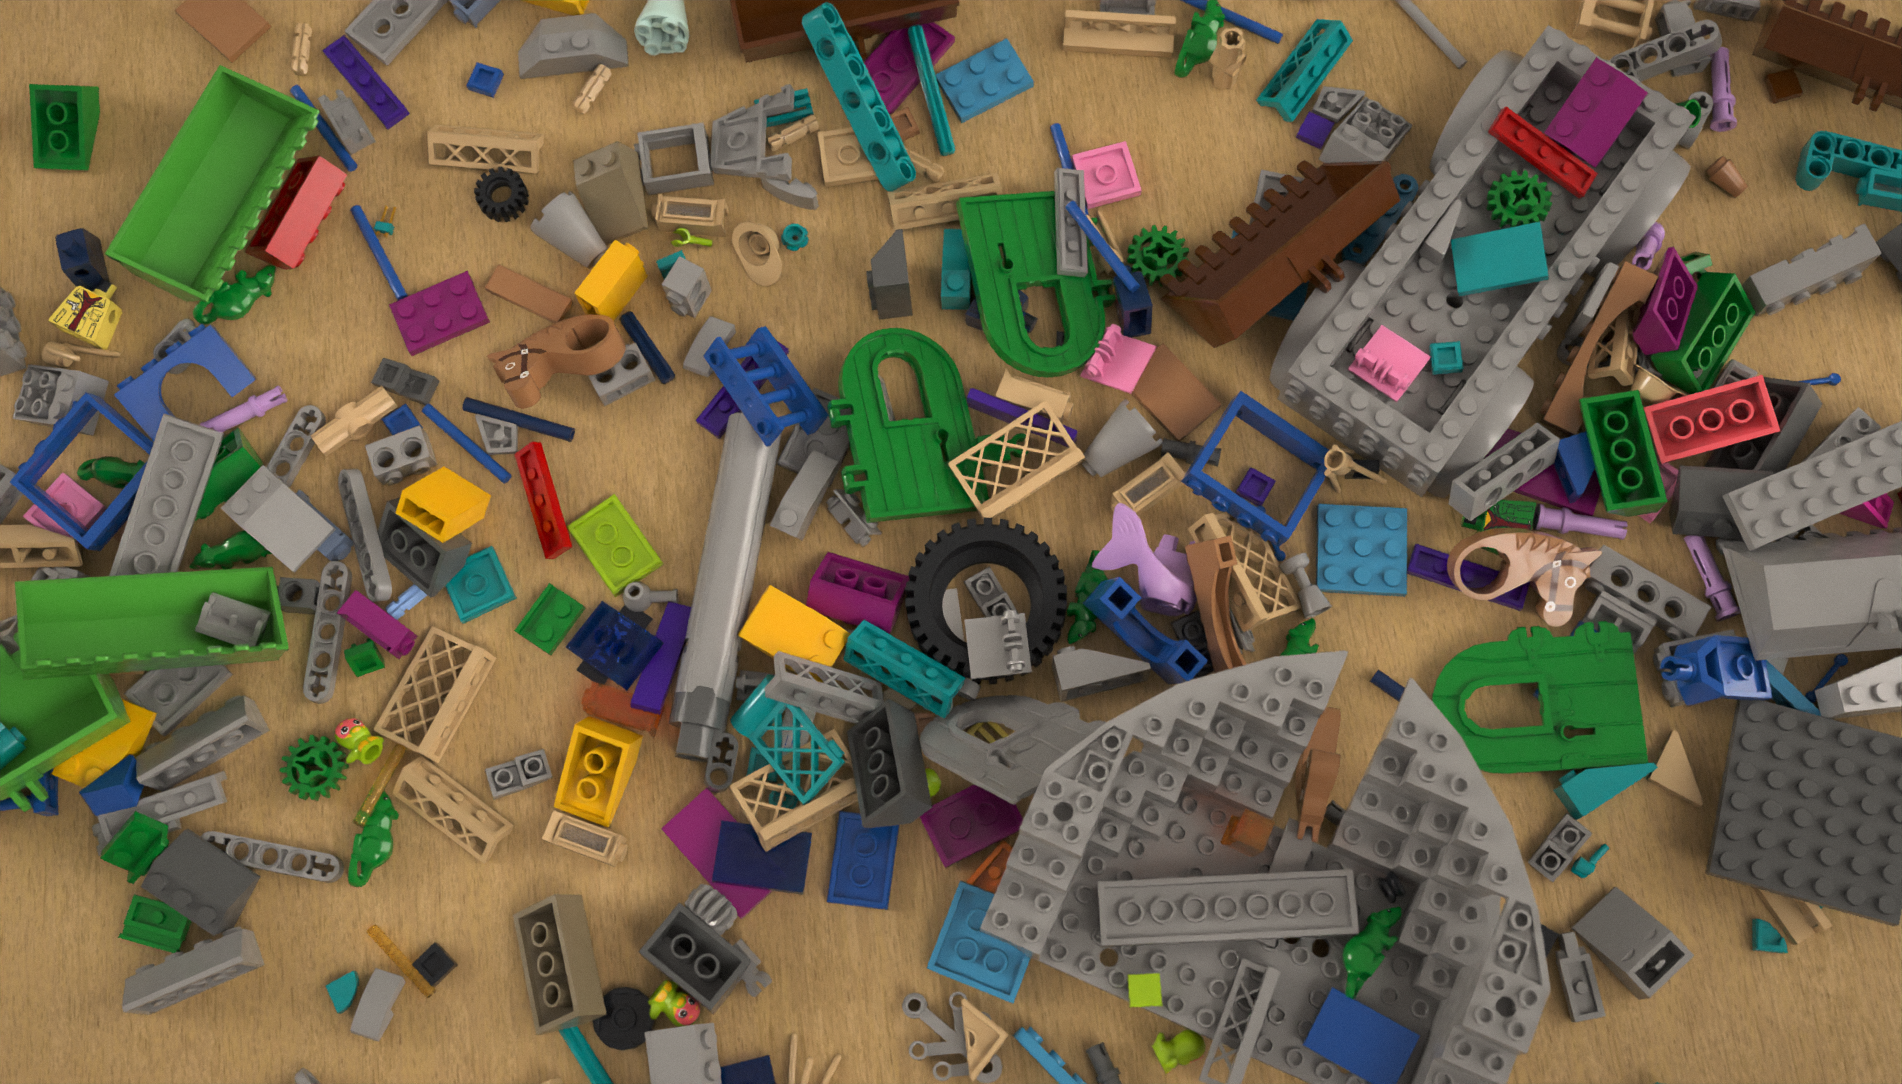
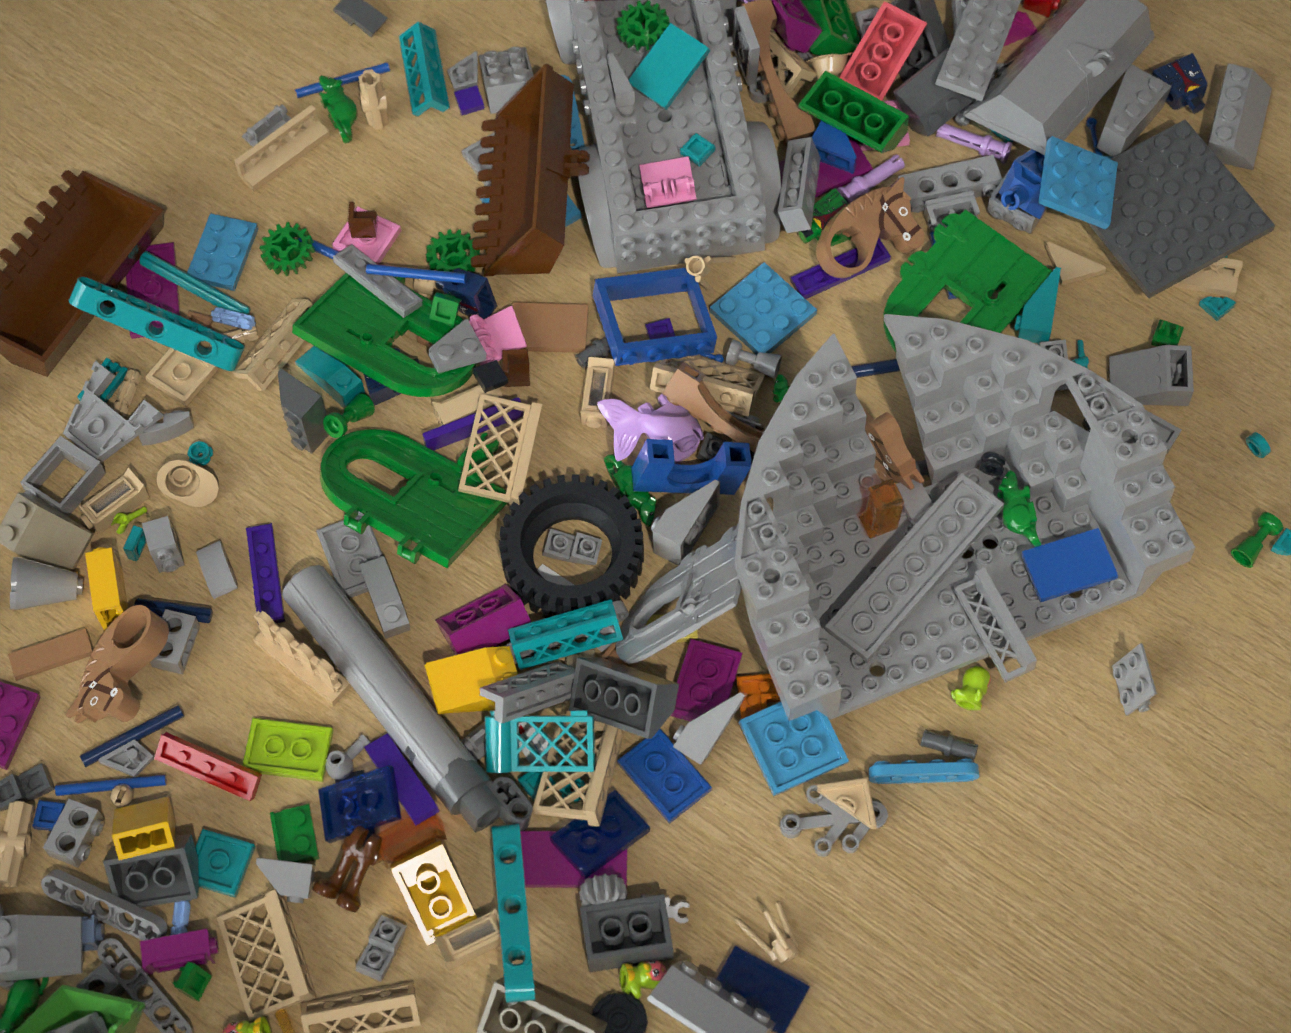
camera: 50 degrees left, 10 degrees down
(465, 465) = (127, 798): none -> tan hinge
(507, 648) = (289, 878): none -> light grey slope
(527, 689) = (332, 887): none -> reddish brown piece
(609, 869) = (513, 926): none -> teal beam
(694, 480) = (300, 659): none -> tan fence
(781, 374) = (288, 550): blue fence -> none
(846, 507) = (418, 581): light grey hinge -> none
(926, 860) = (703, 733): none -> light grey slope
(931, 146) = (233, 318): none -> light blue axle
(942, 317) = (356, 410): none -> green piece
(998, 645) = (612, 558): light grey hinge -> none
(1036, 115) = (285, 247): none -> green gear
(1069, 343) = (457, 349): none -> light grey wing
(1072, 392) = (490, 376): none -> black tile
(1096, 298) = (445, 308): none -> green tile
(1103, 401) = (516, 367): none -> reddish brown panel
(1111, 159) = (362, 223): none -> reddish brown panel
(1120, 441) = (551, 377): light grey cone -> none
(1144, 990) = (919, 662): lime tile -> none
(1372, 465) = (716, 267): black tile -> none
(1691, 919) = (1167, 334): none -> green tile
(1752, 711) = (1078, 182): none -> dark azure plate

